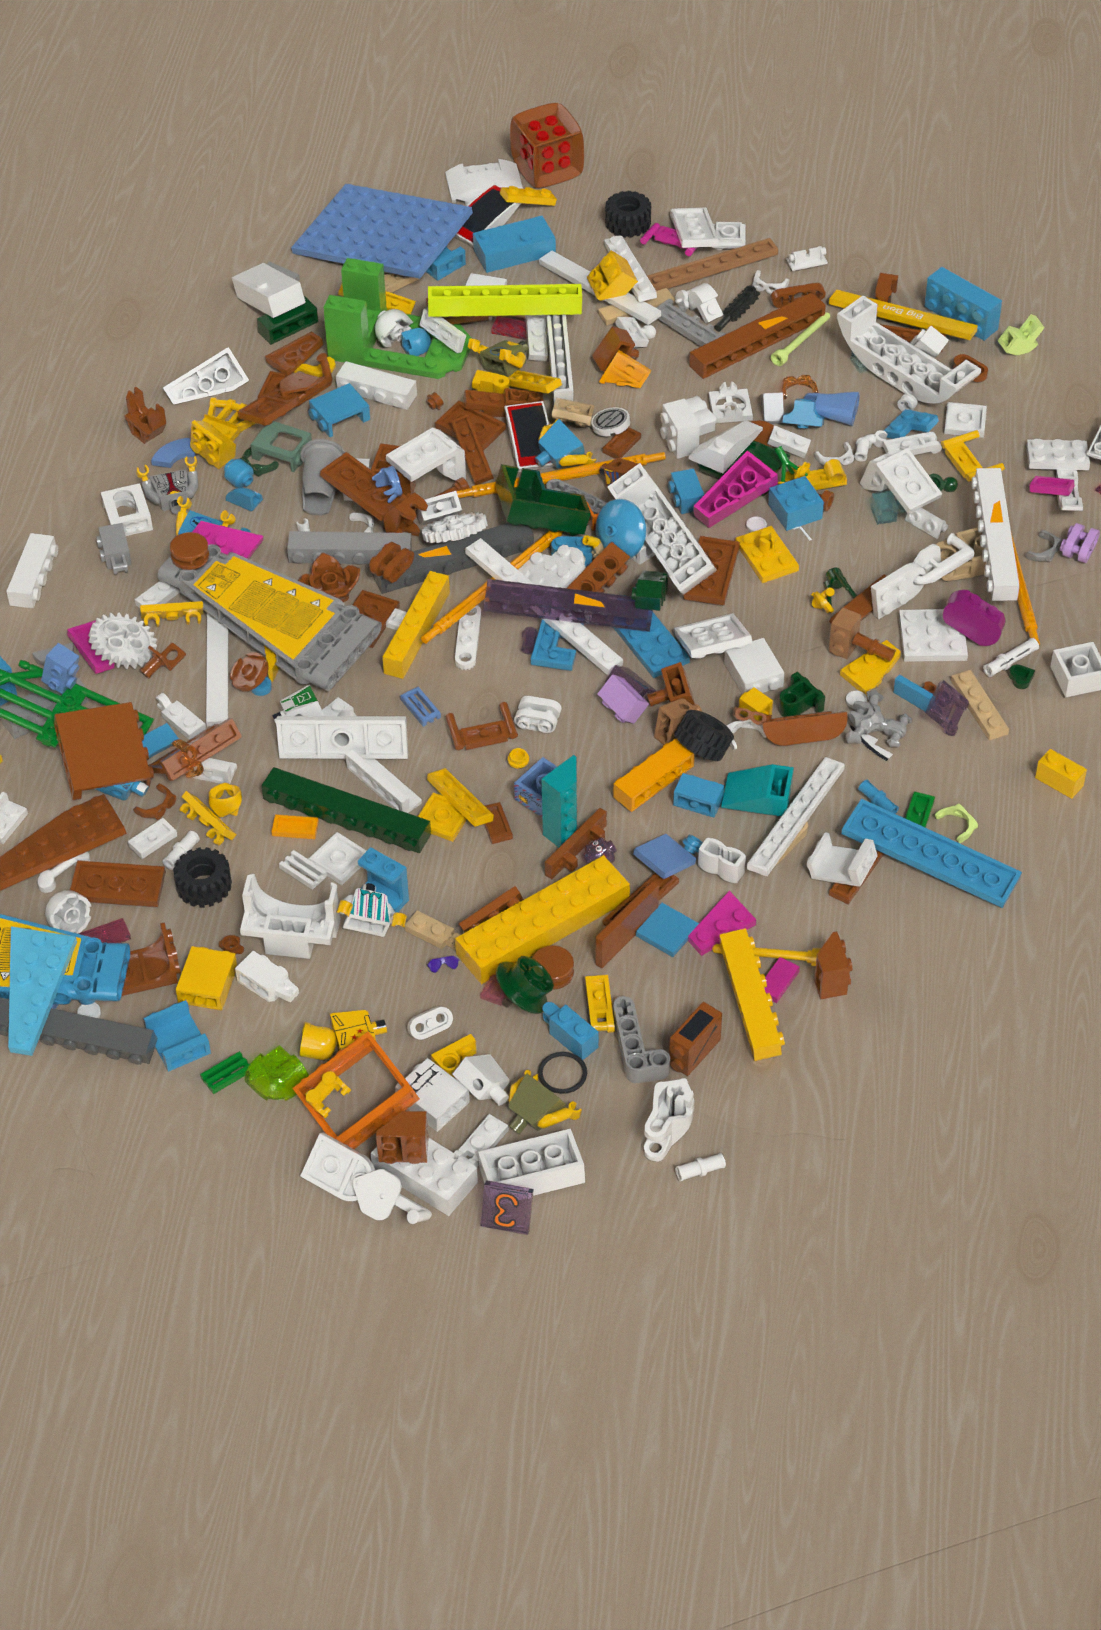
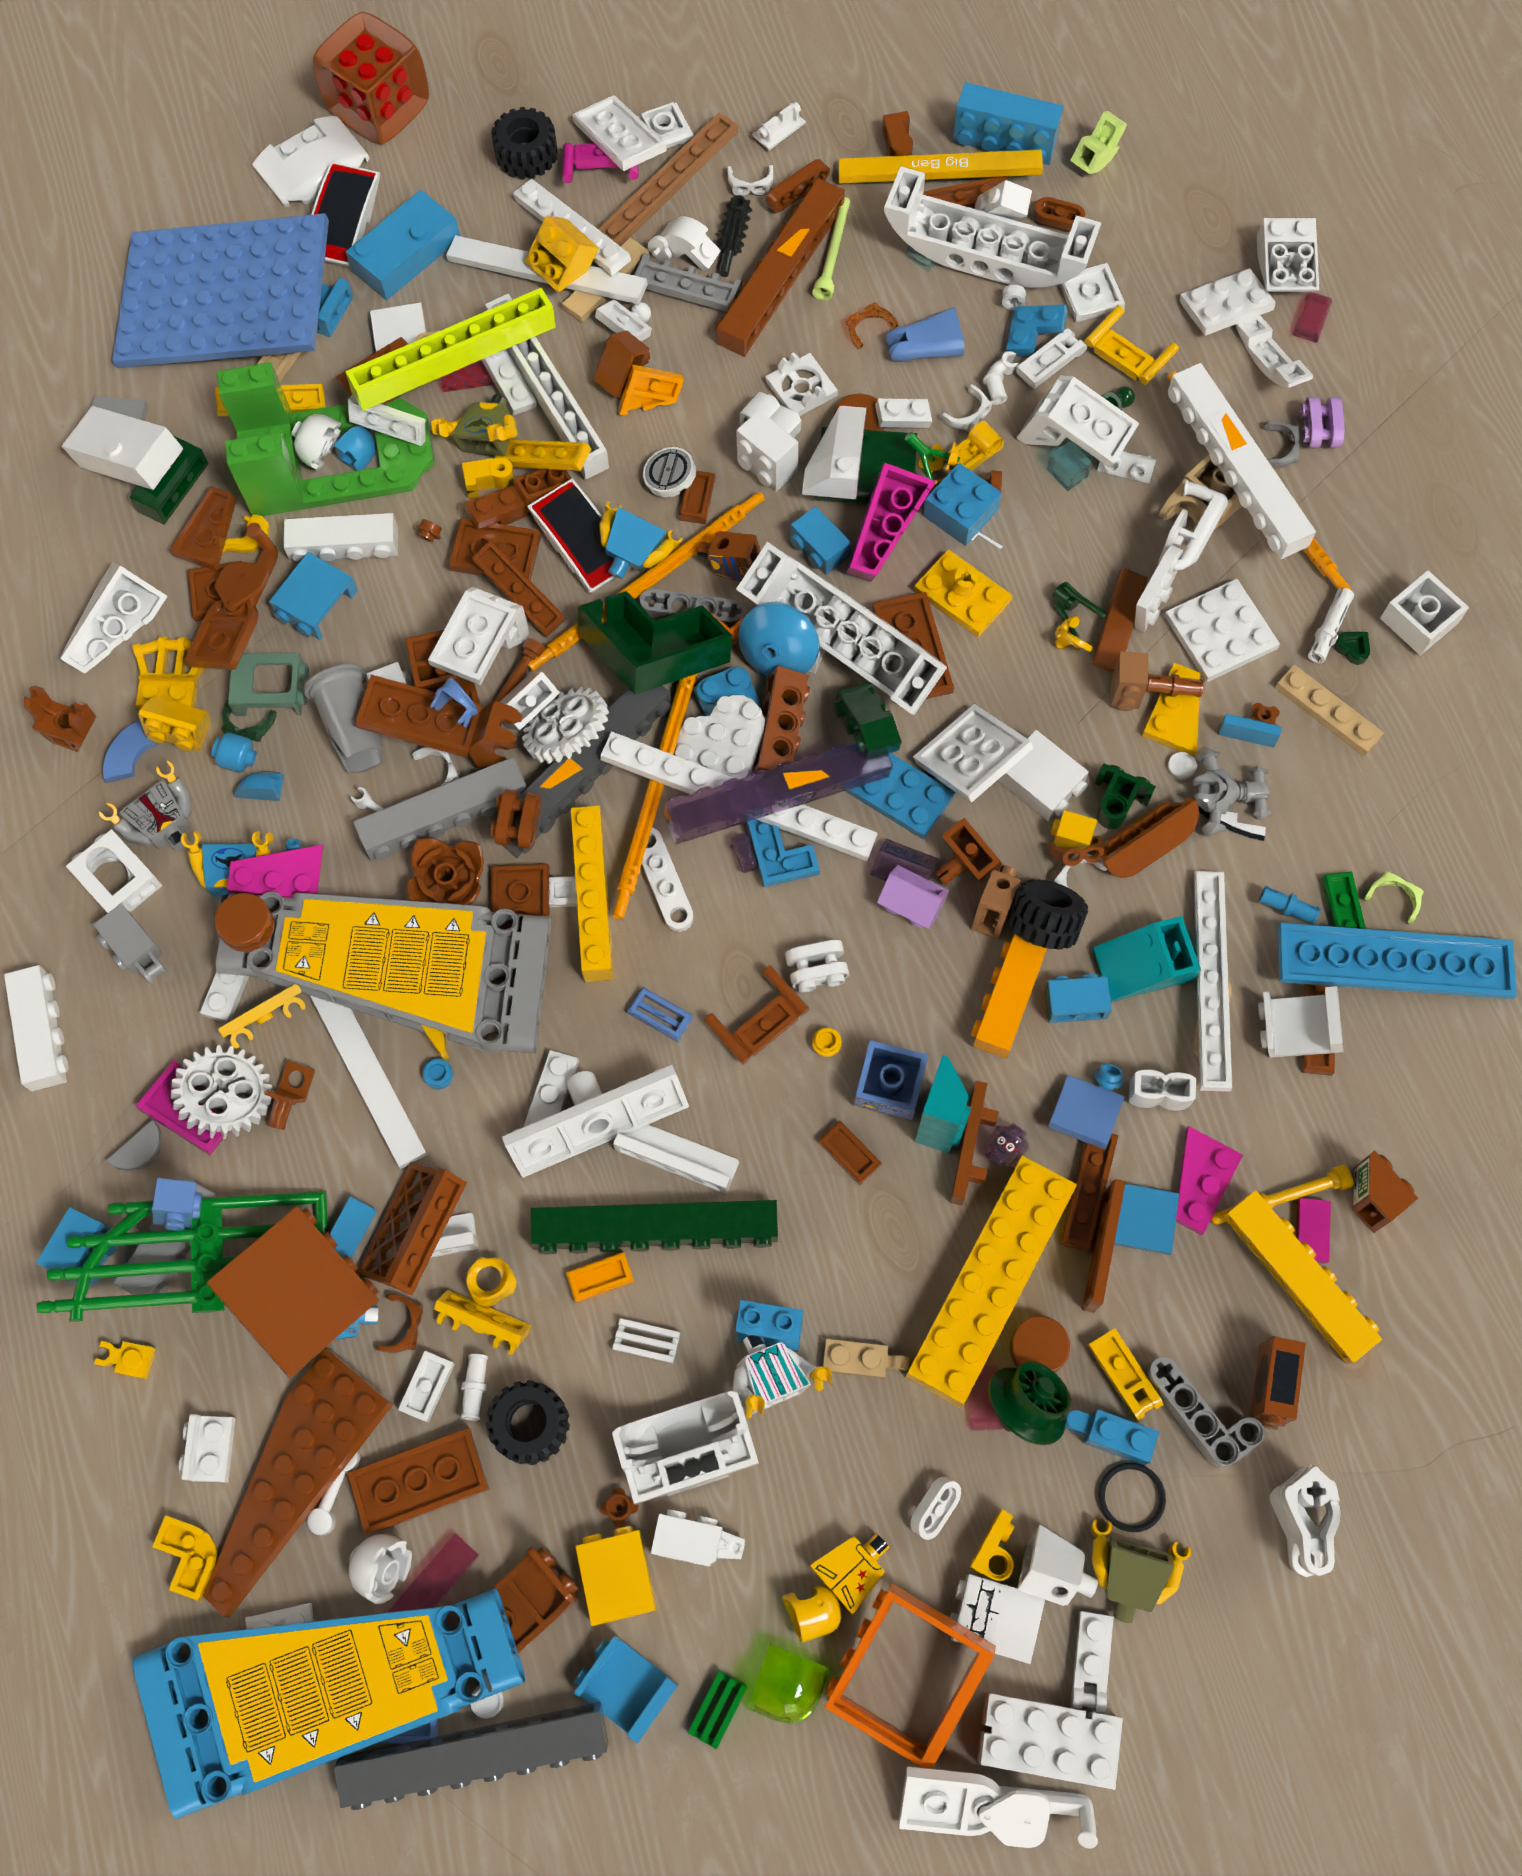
camera: 25 degrees left, 20 degrees up
(36, 973) = (399, 1704): medium azure wing -> none
(180, 717) = (360, 1173): white plate -> none
(184, 748) = (432, 1261): clear orange cap -> none
(249, 671) = (415, 1064): dark orange tile -> none
(300, 704) = (515, 1097): white torso -> none
(329, 1082) = (877, 1717): yellow piece -> none
(338, 857) = (682, 1300): white tile -> none
(404, 1138) = (1033, 1745): dark orange slope -> none
(435, 964) = (893, 1408): dark purple piece -> none
(443, 817) = (779, 1173): yellow tile -> none
(460, 797) = (789, 1139): yellow tile -> none
(492, 909) = (931, 1292): dark orange wing -> none
(507, 1207) = (1188, 1756): clear purple tile -> none
(528, 195) = (383, 164): yellow plate -> none
(535, 1163) = (1181, 1673): white brick -> none
(573, 411) = (619, 480): tan plate -> none
(595, 543) = (755, 675): yellow arm -> none
(700, 1167) = (1374, 1562): white pin -> none
(755, 523) = (926, 553): white piece -> none
(772, 407) = (854, 367): slope -> none
(804, 414) = (902, 366): dark azure brick -> none
(942, 704) = (1301, 736): clear purple plate -> none
(974, 617) = (1270, 592): magenta brick -> none
(1052, 485) = (1247, 351): dark pink tile -> none
(1061, 773) = (1481, 774): yellow brick -> none

